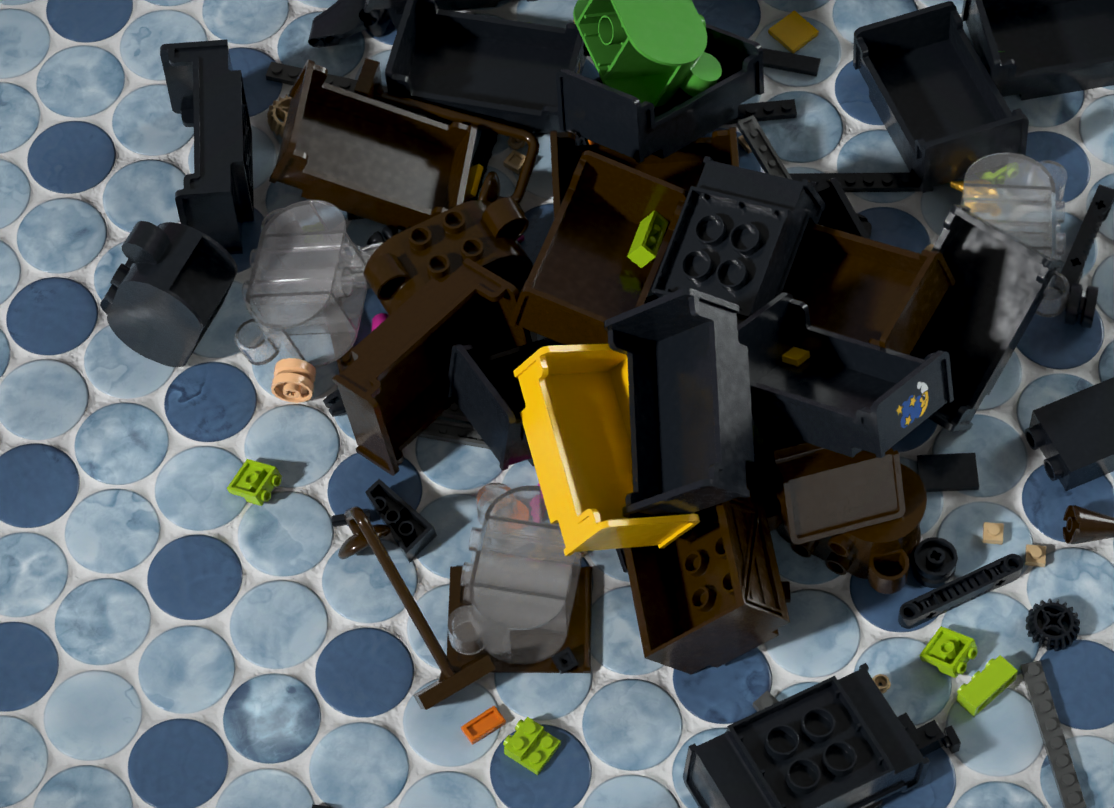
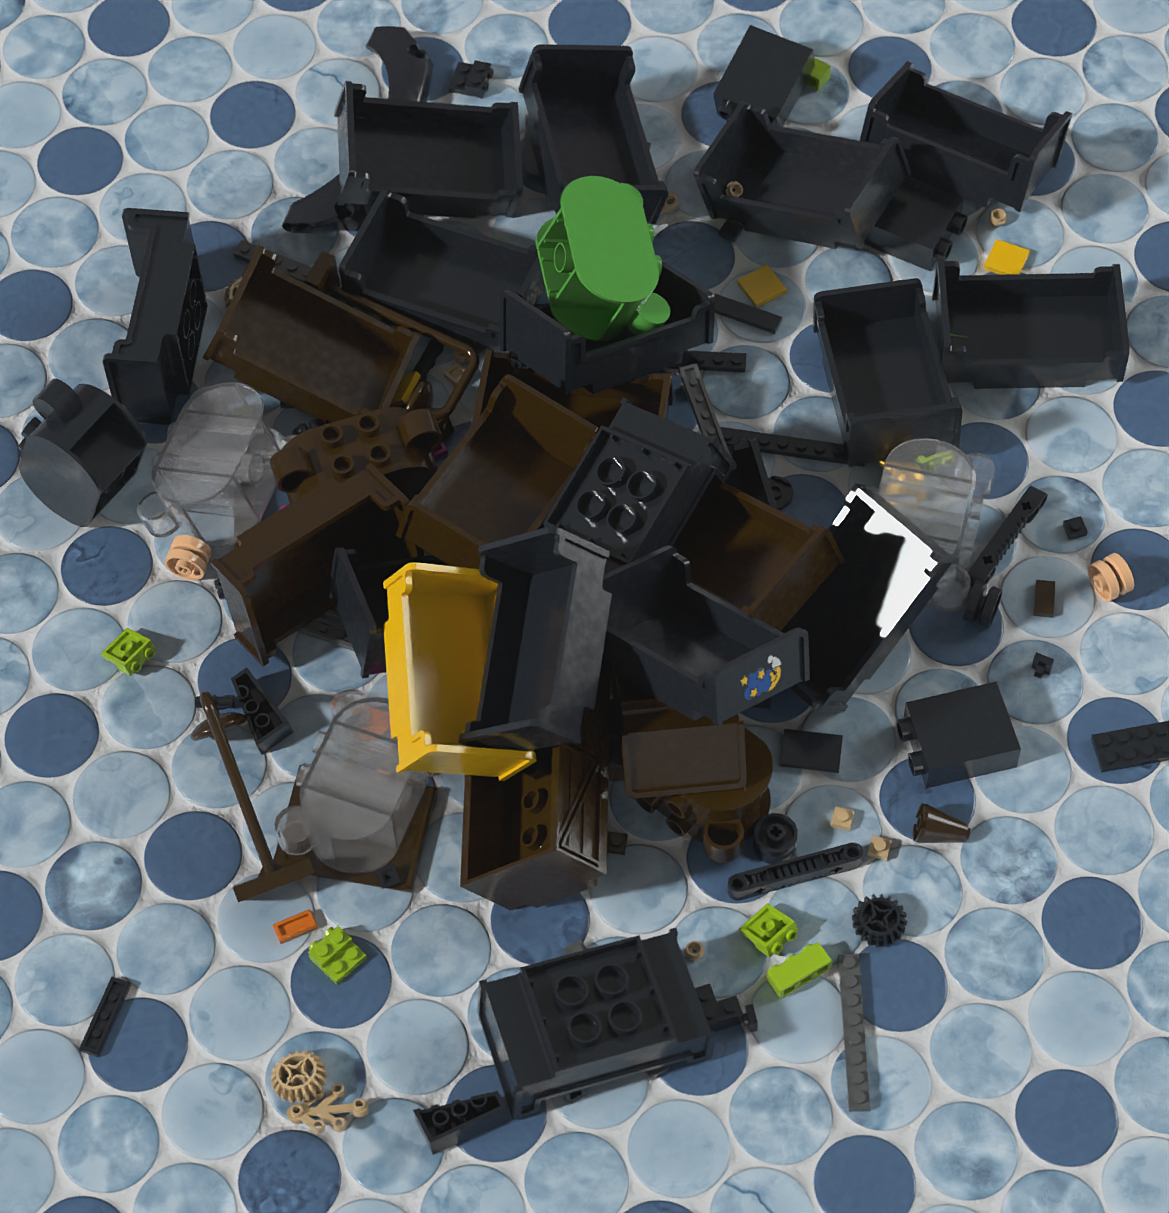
camera: 10 degrees right, 0 degrees up
(648, 239) = (556, 471): lime brick -> none
(795, 356) = (672, 611): yellow tile -> none

